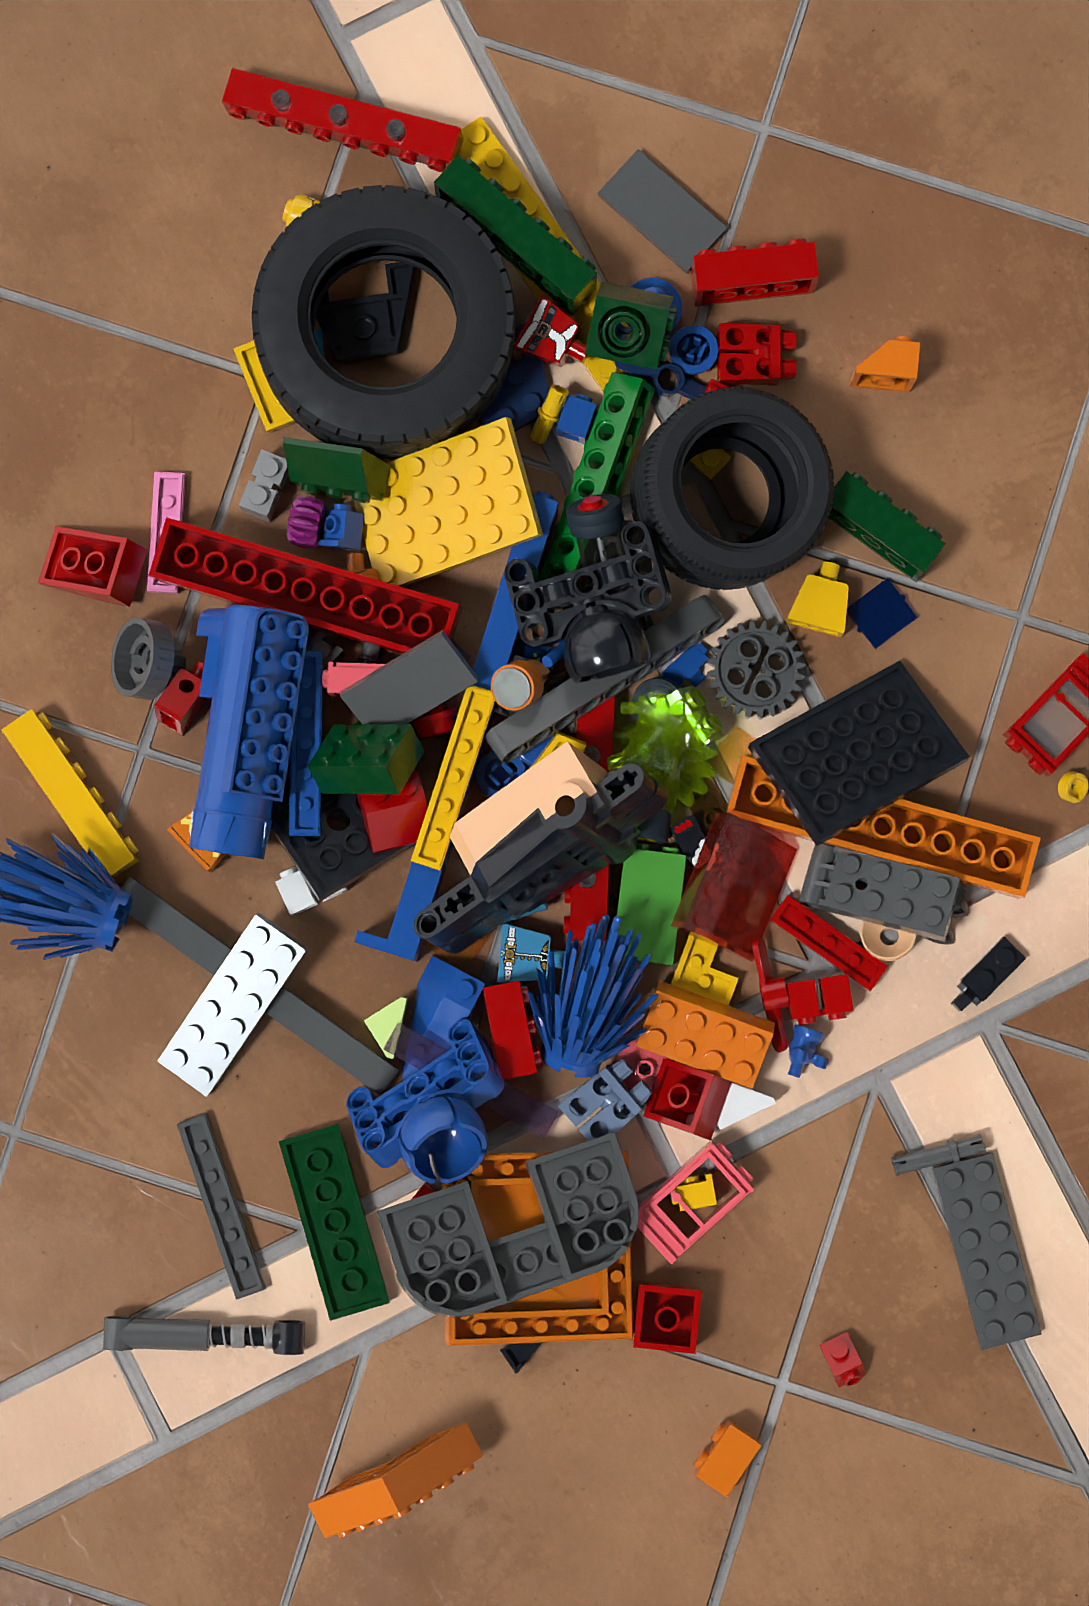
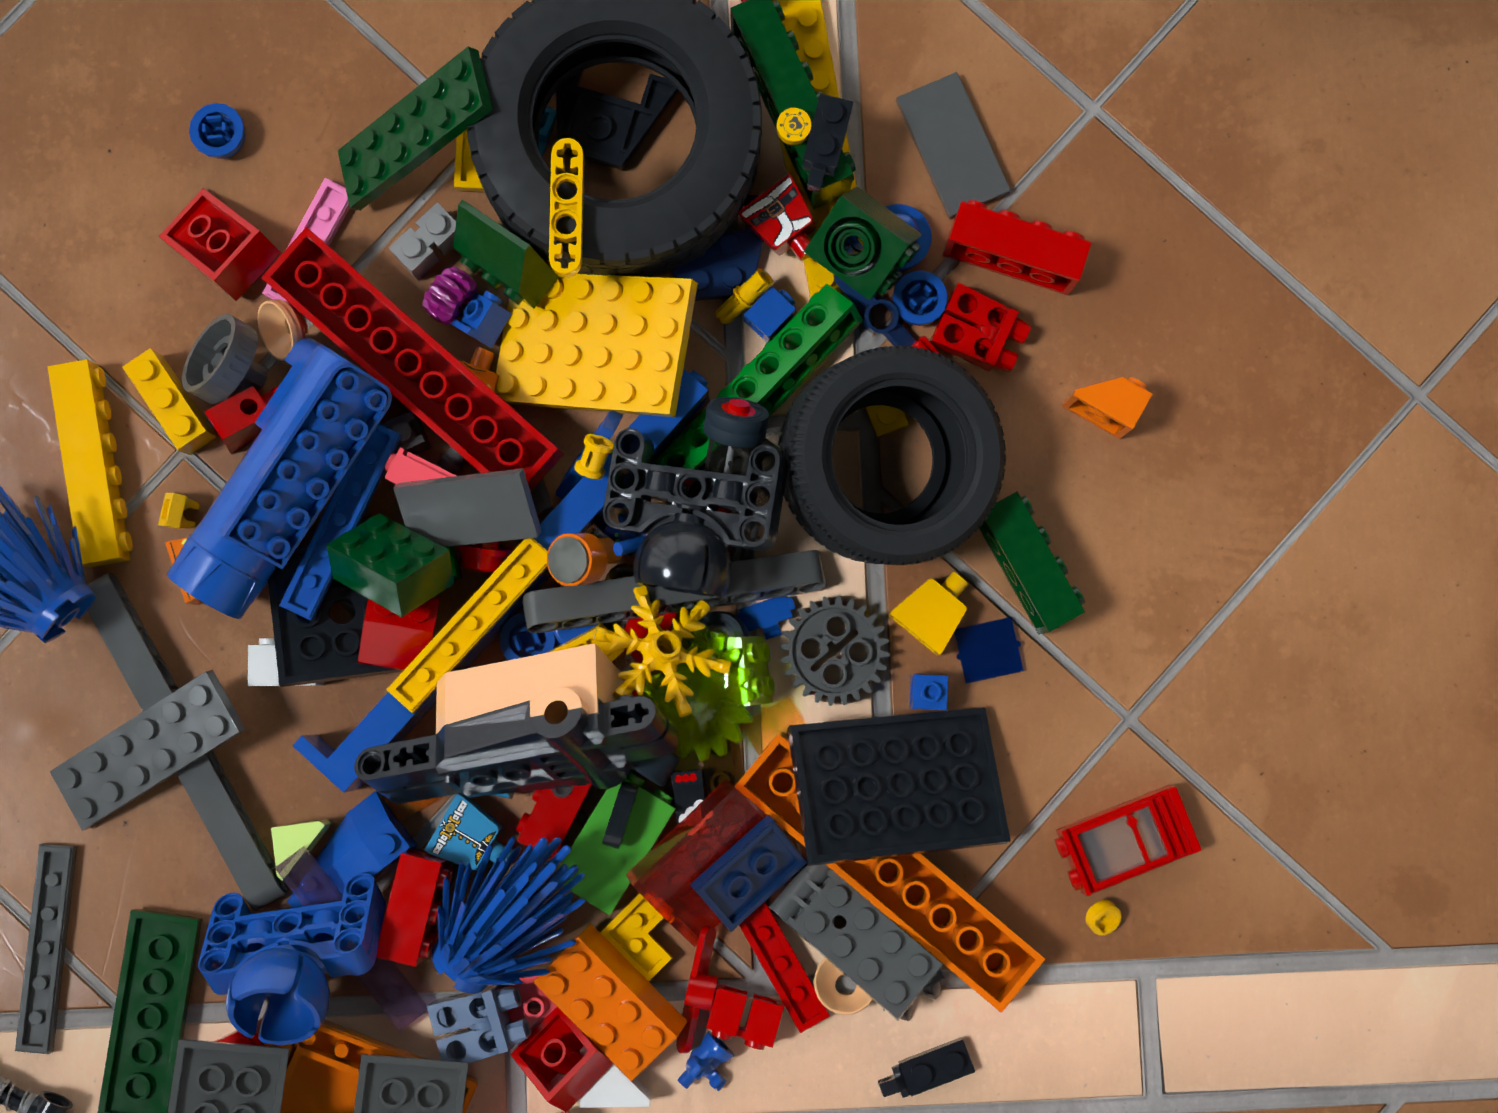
camera: 20 degrees right, 0 degrees up
(47, 472) = (217, 131): none -> blue piece
(114, 713) = (169, 401): none -> yellow brick
(159, 802) = (172, 511): none -> yellow tile
(171, 611) = (280, 327): none -> light nougat piece
(219, 397) = (415, 128): none -> dark green plate
(383, 403) = (570, 207): none -> yellow beam
(483, 599) = (572, 477): none -> blue tile
(492, 596) = (594, 456): none -> yellow bush
(531, 255) = (793, 126): none -> yellow tile
(562, 254) = (826, 139): none -> black hinge
(620, 727) = (671, 646): none -> yellow piece
(645, 878) = (620, 815): none -> black beam
(770, 878) = (749, 873): none -> dark blue tile
(848, 668) = (928, 692): none -> blue brick

